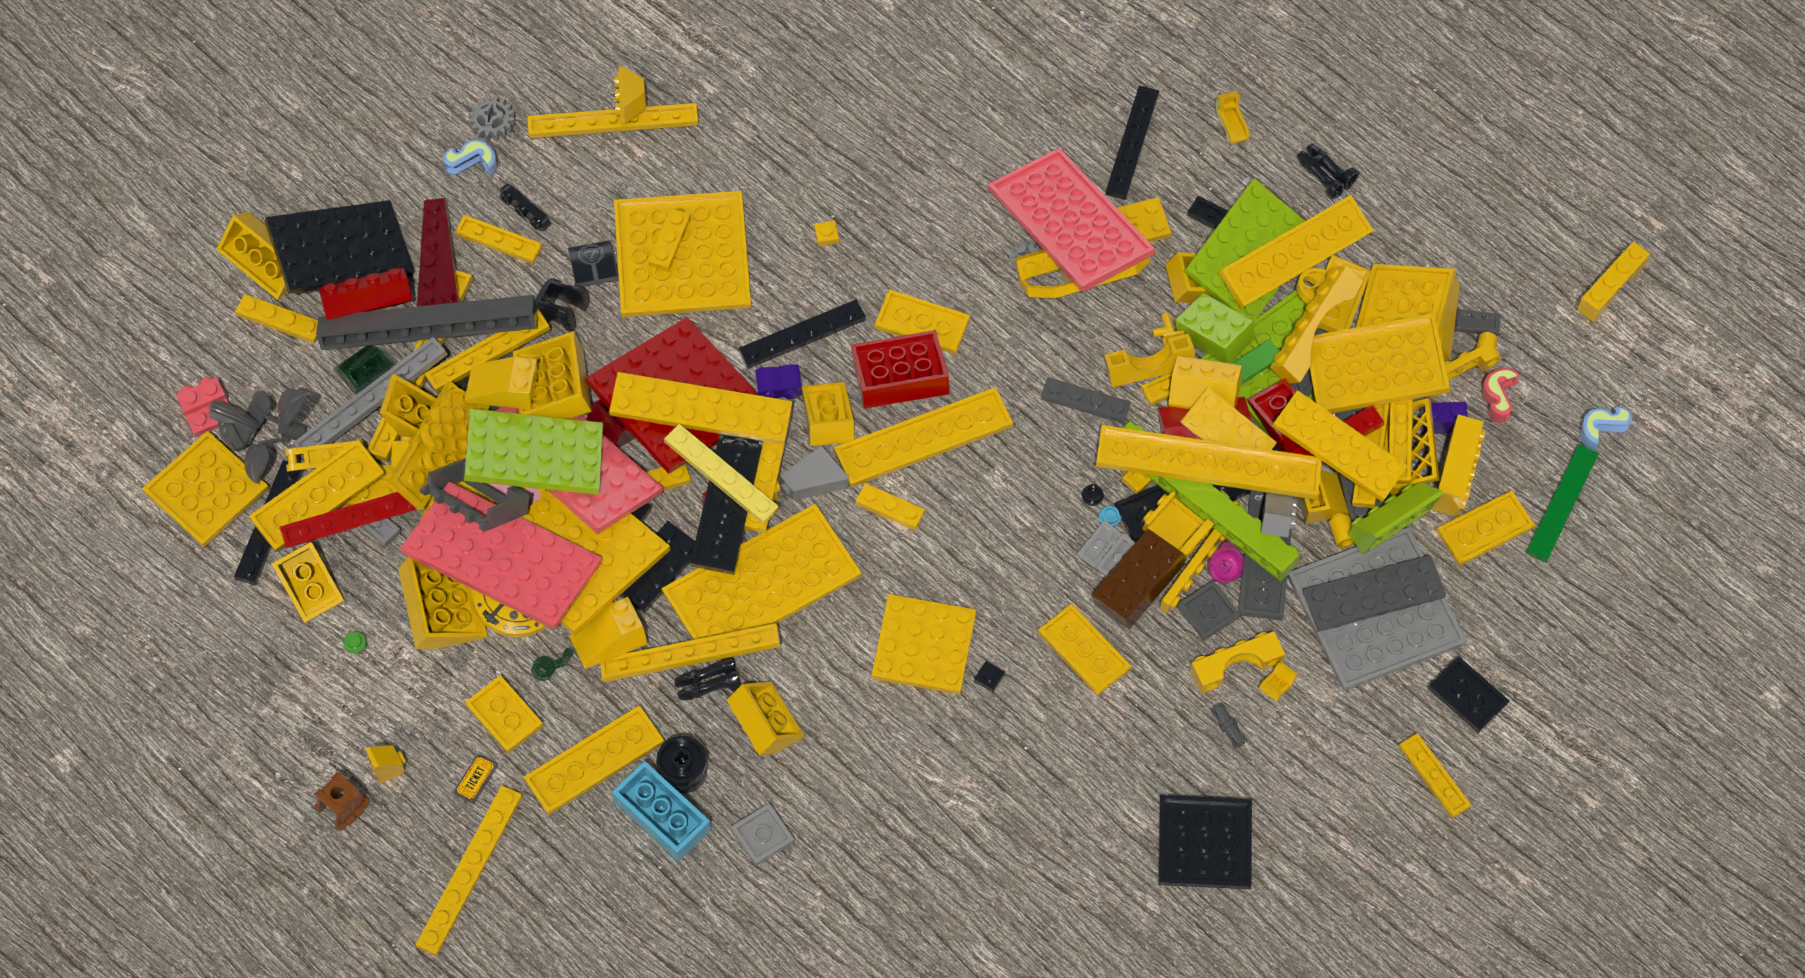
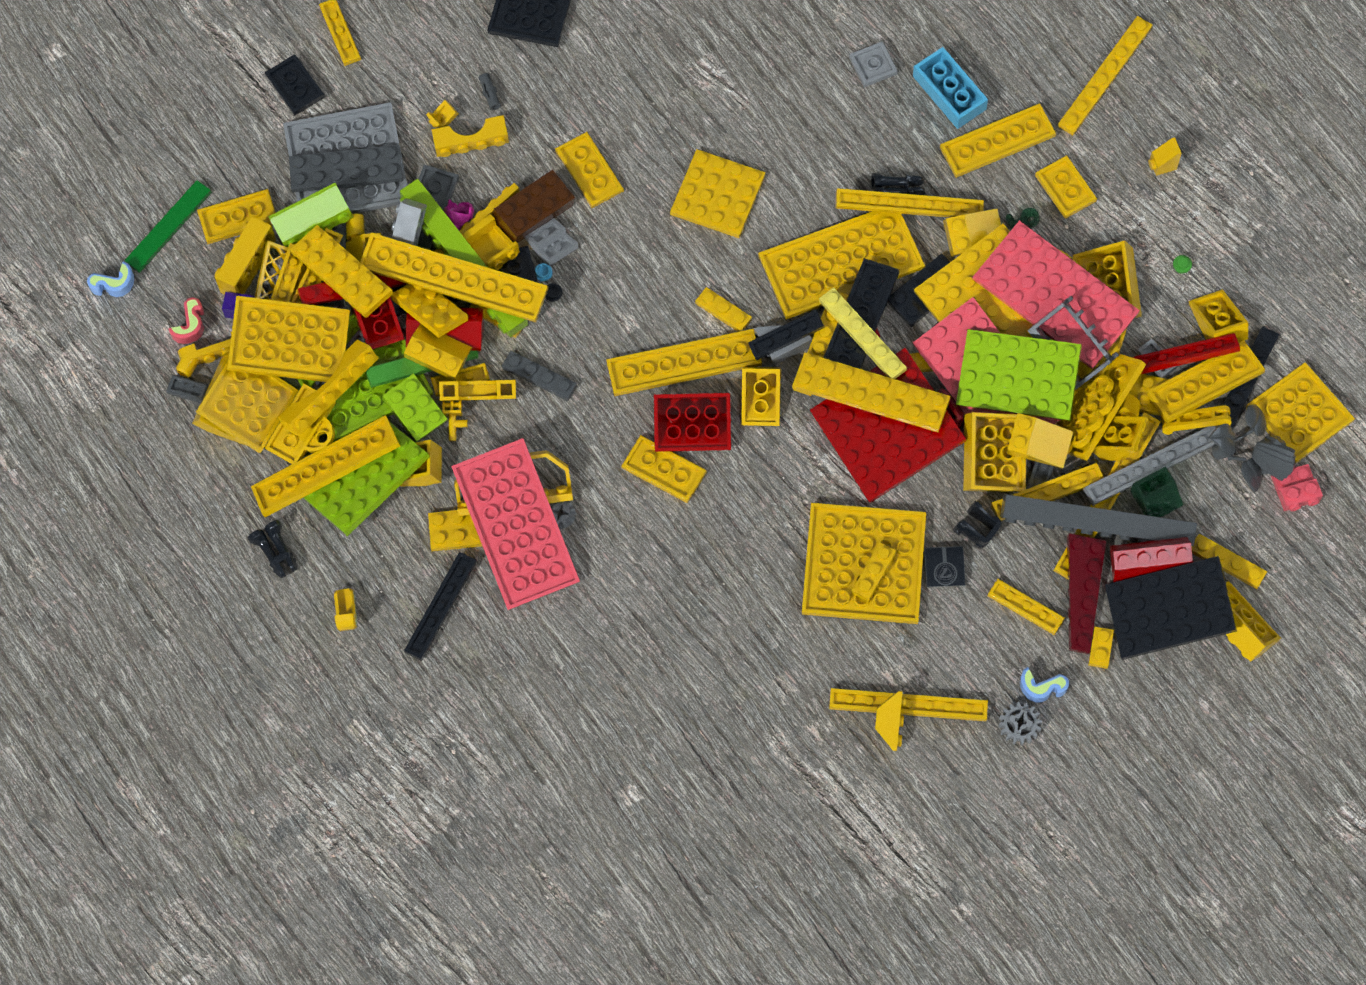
camera: 165 degrees left, 5 degrees up
(347, 807) = (1210, 139): dark orange piece -> none
(412, 210) = (1101, 647): none -> yellow plate
(475, 779) = (1093, 142): tile -> none
(524, 207) = (1000, 628): black plate -> none
(682, 763) = (928, 122): black wheel -> none
(764, 717) = (856, 150): yellow slope -> none
(779, 381) = (798, 428): dark purple brick -> none
(801, 334) = (770, 474): black plate -> none
(809, 467) = (786, 335): none -> black tile
(826, 233) = (732, 565): yellow plate -> none
(989, 677) = (670, 159): black plate -> none
(1206, 212) = (388, 524): black plate -> none
(1208, 610) = (482, 181): dark grey plate -> none
(1601, 294) = (43, 413): yellow arch -> none

